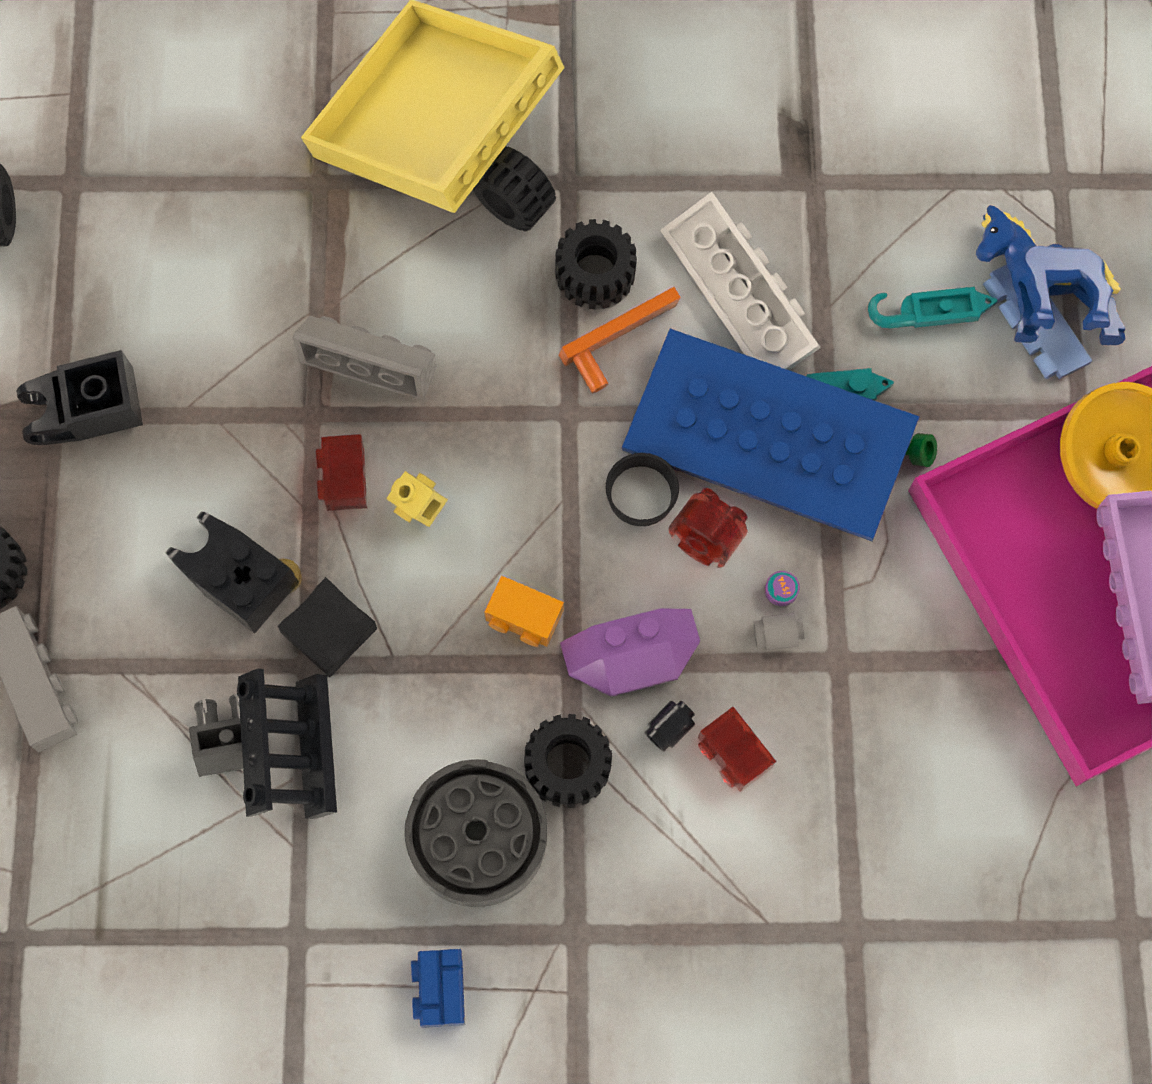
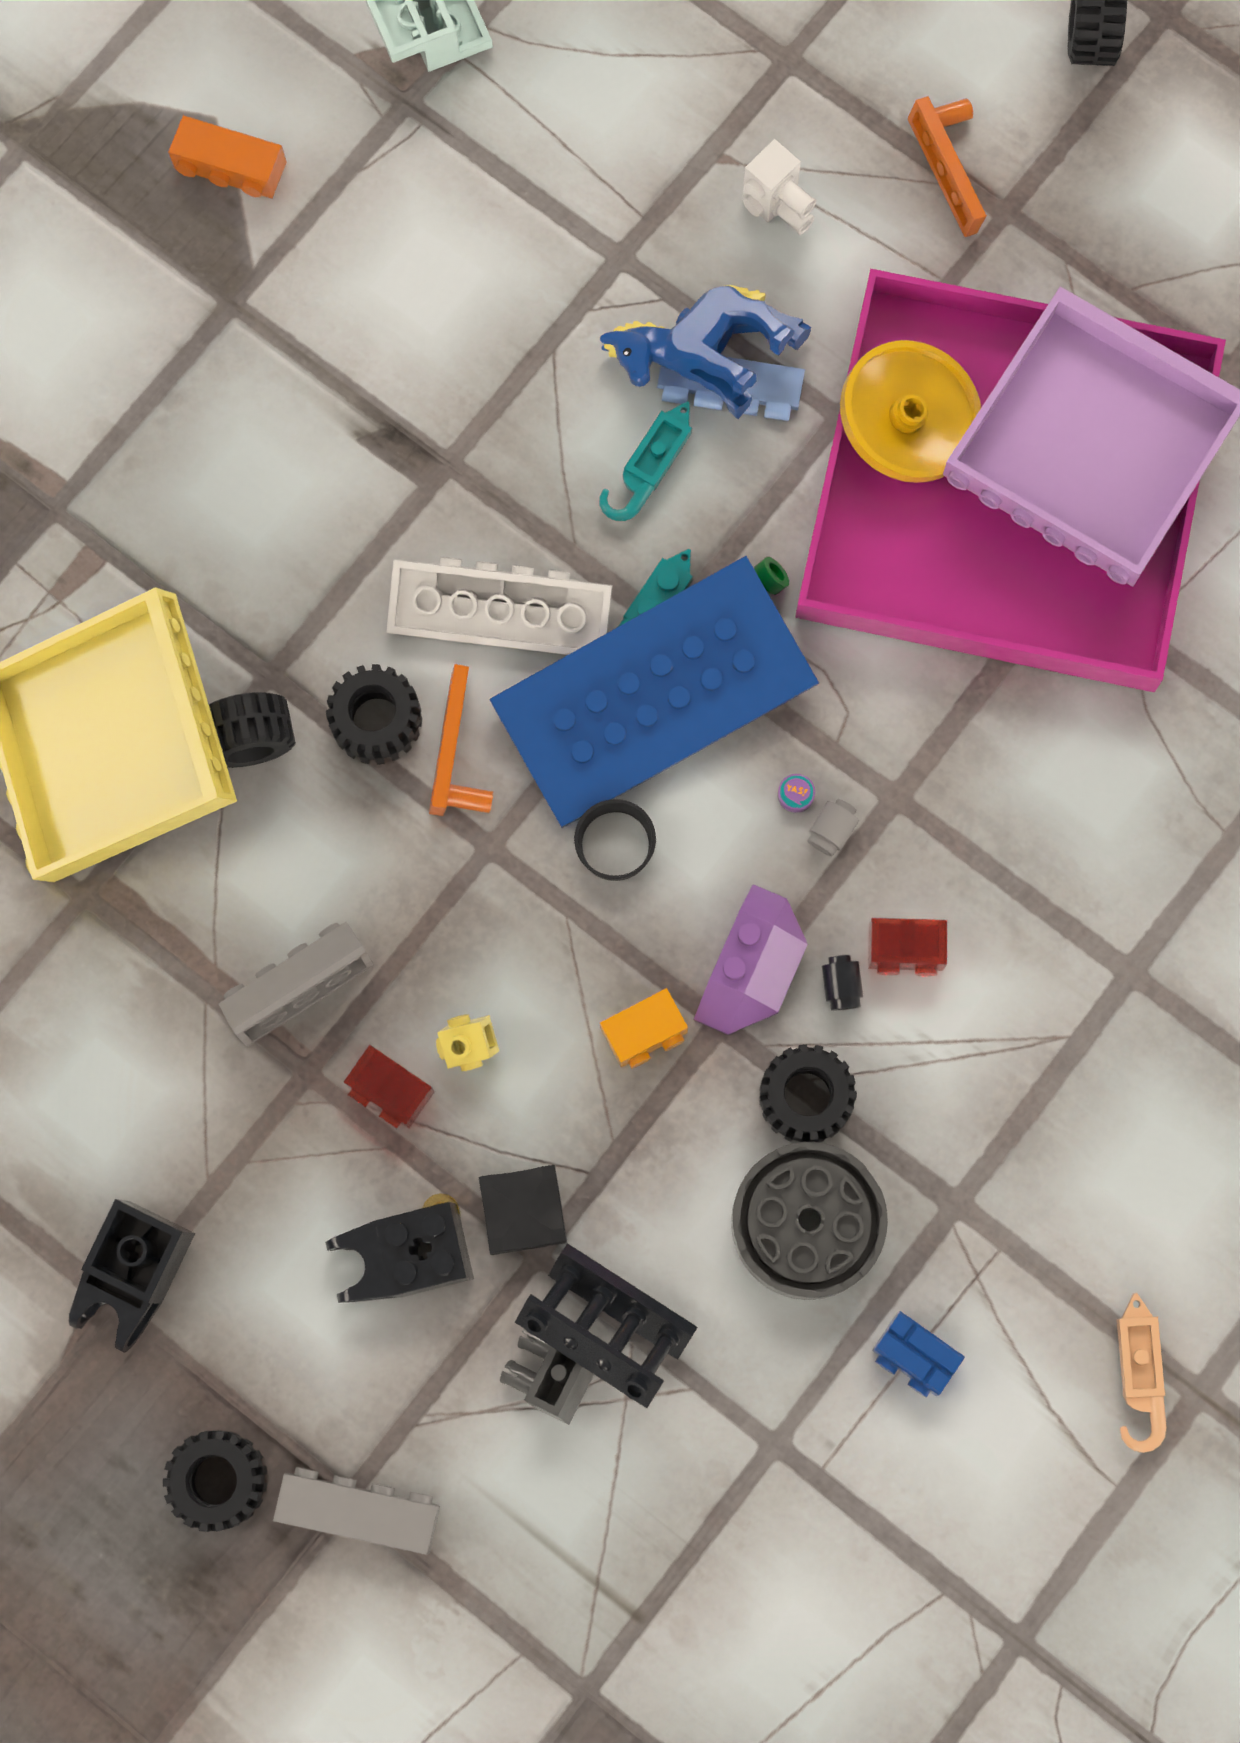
camera: 45 degrees left, 5 degrees up
(709, 528) = (699, 811): clear red brick -> none

